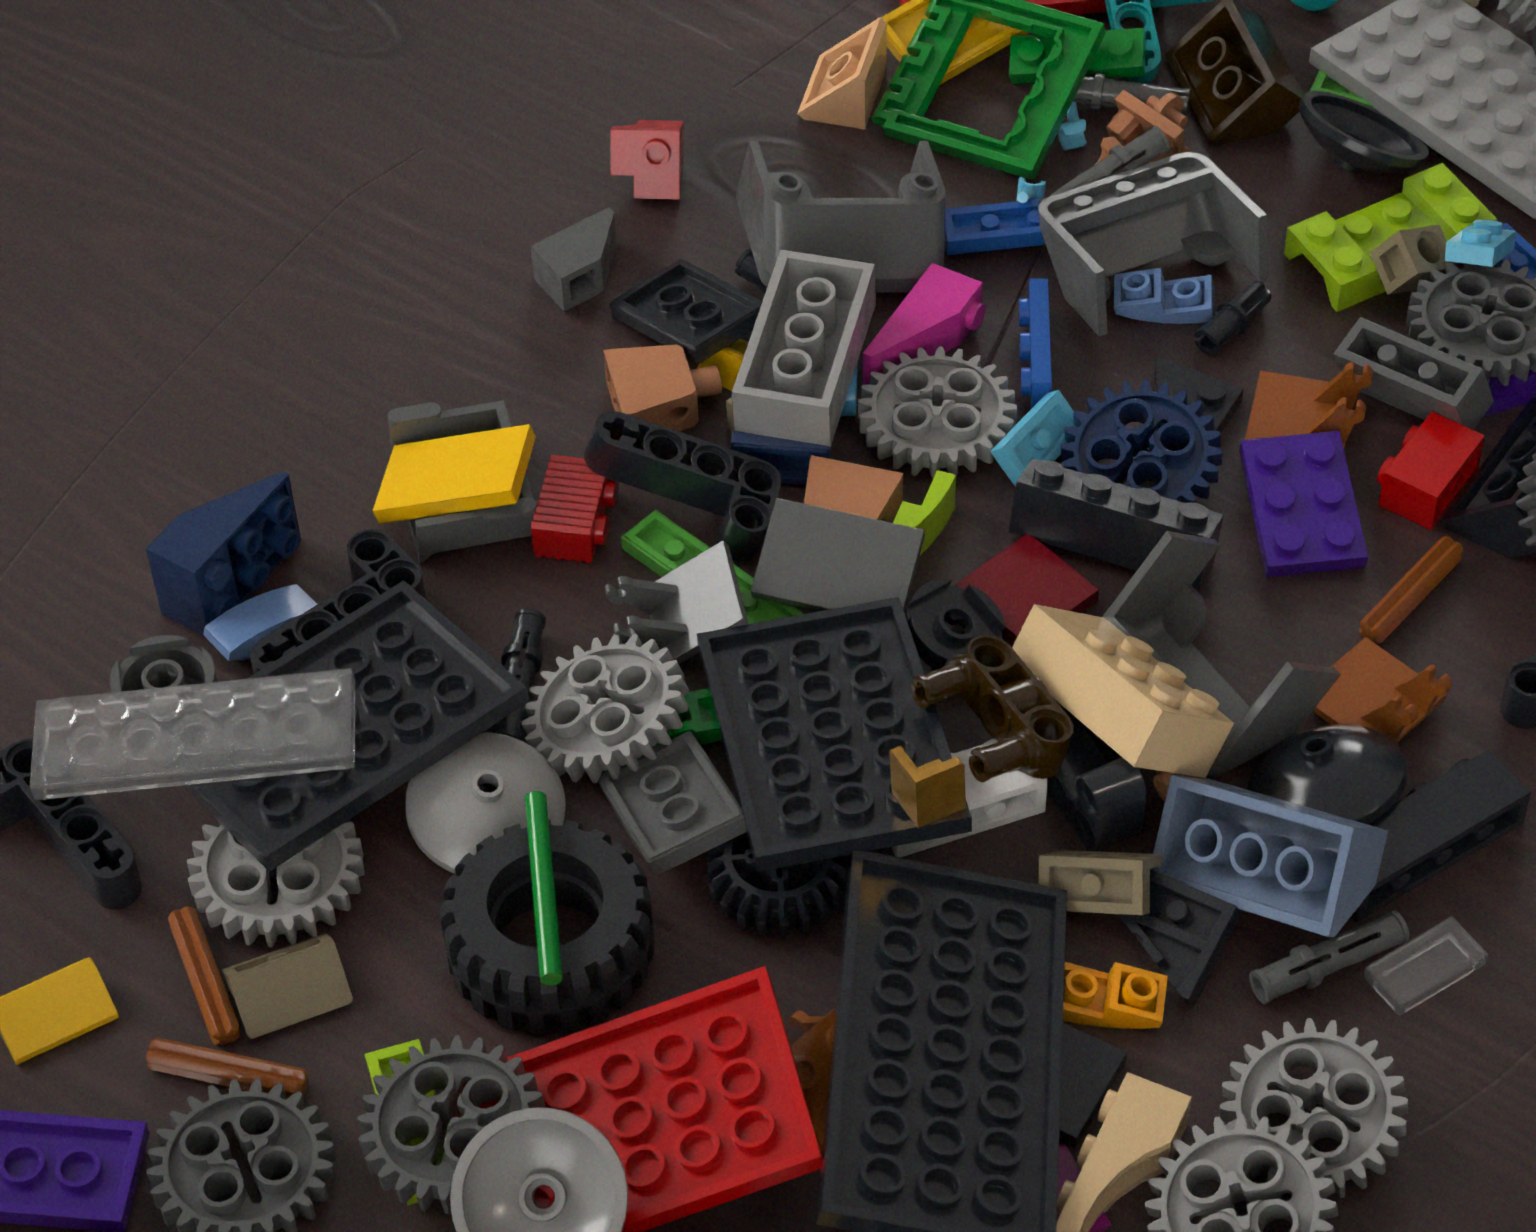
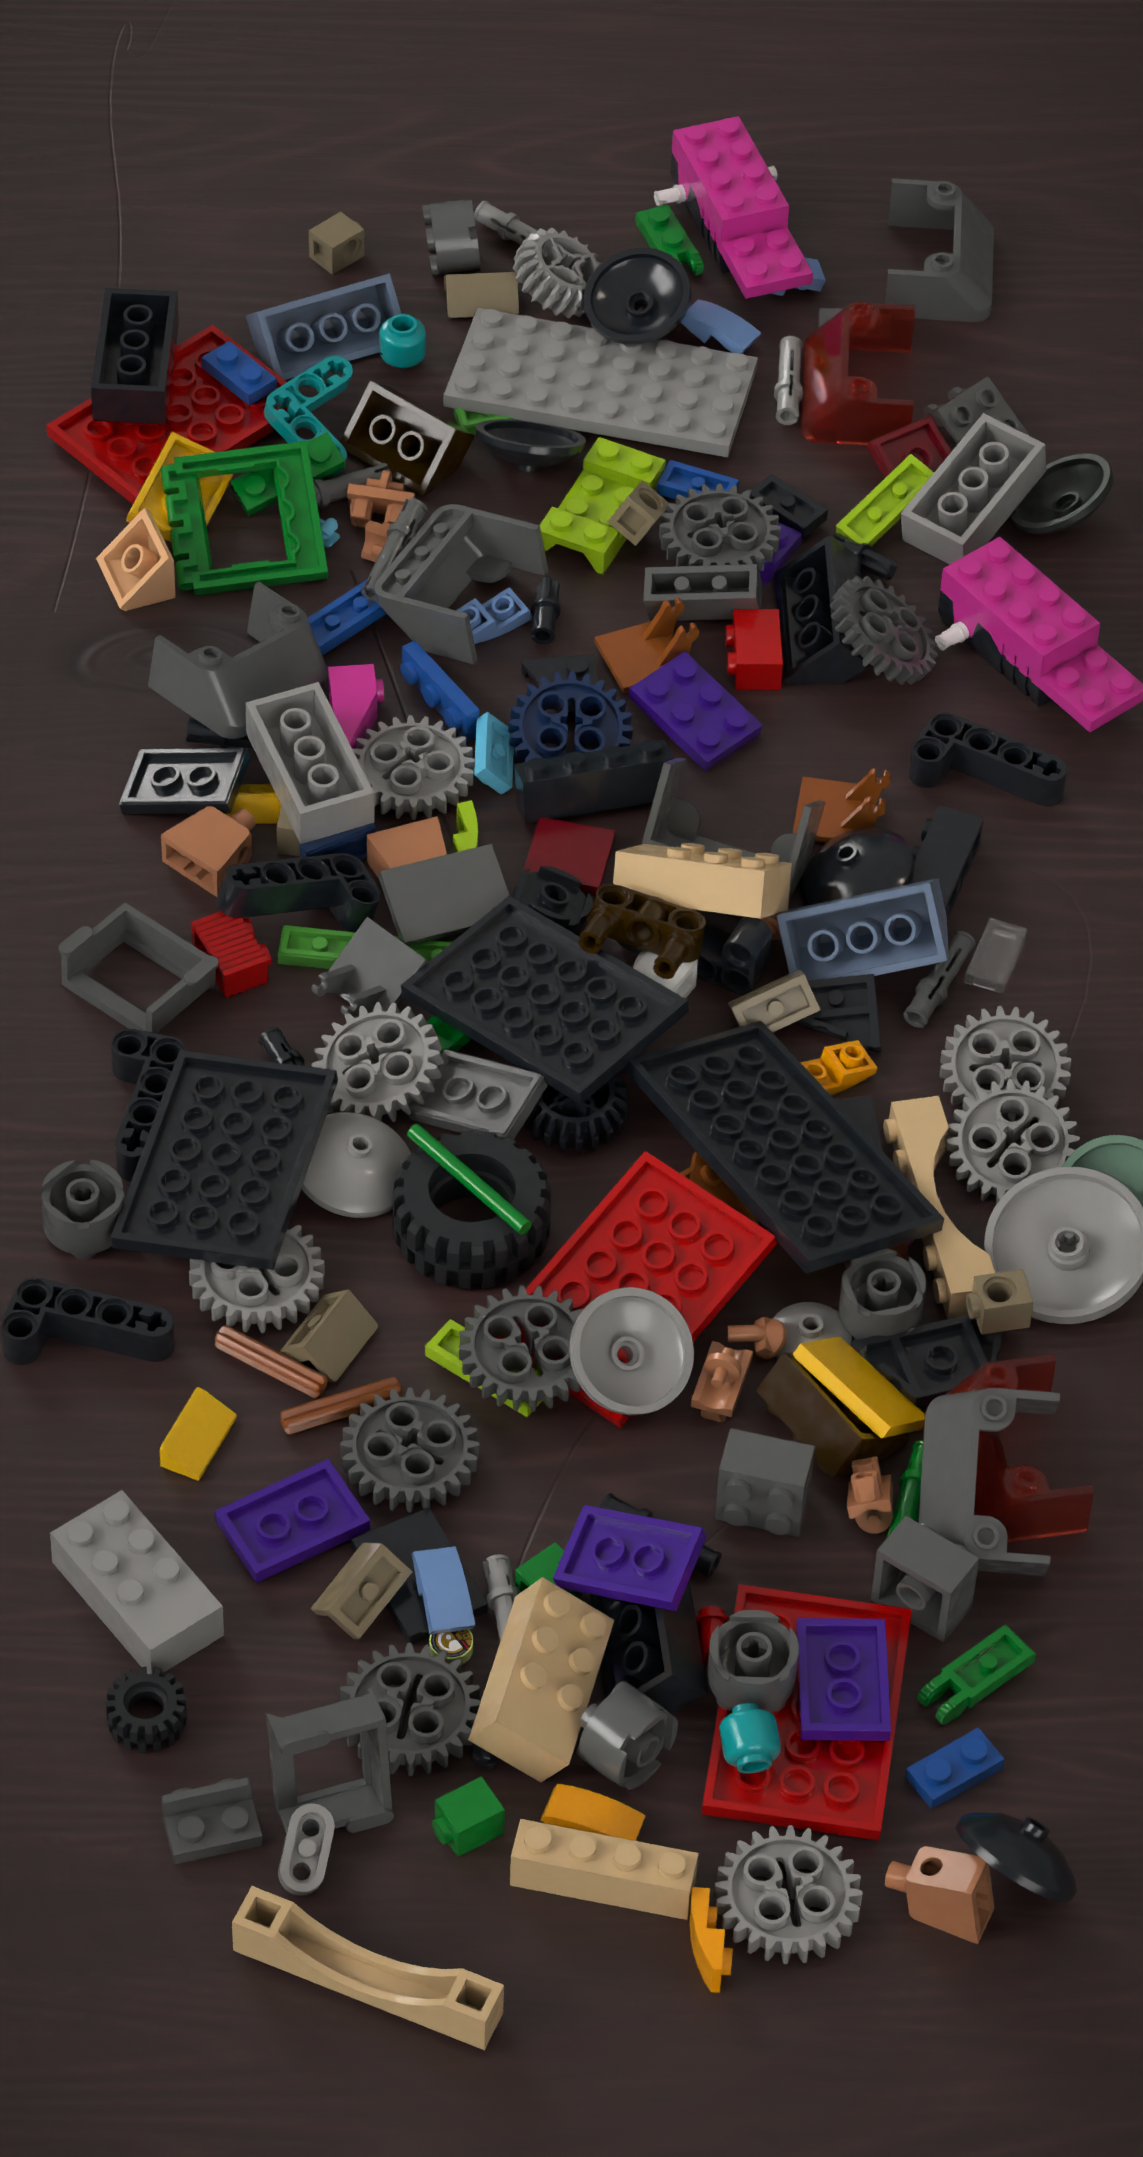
camera: 40 degrees left, 0 degrees up
(193, 734) = (146, 1213): clear plate -> none
(223, 551) = (31, 1102): dark blue slope -> none
(247, 623) = (92, 1130): medium blue slope -> none
(454, 474) = (141, 966): yellow tile -> none
(576, 260) = (71, 786): dark grey slope -> none
(651, 154) = (58, 685): brick -> none
(927, 790) = (650, 996): pearl gold panel -> none
(1029, 191) = (336, 589): medium azure hand -> none
(1411, 590) = (803, 733): dark orange axle -> none
(1480, 244) = (678, 481): medium azure plate -> none

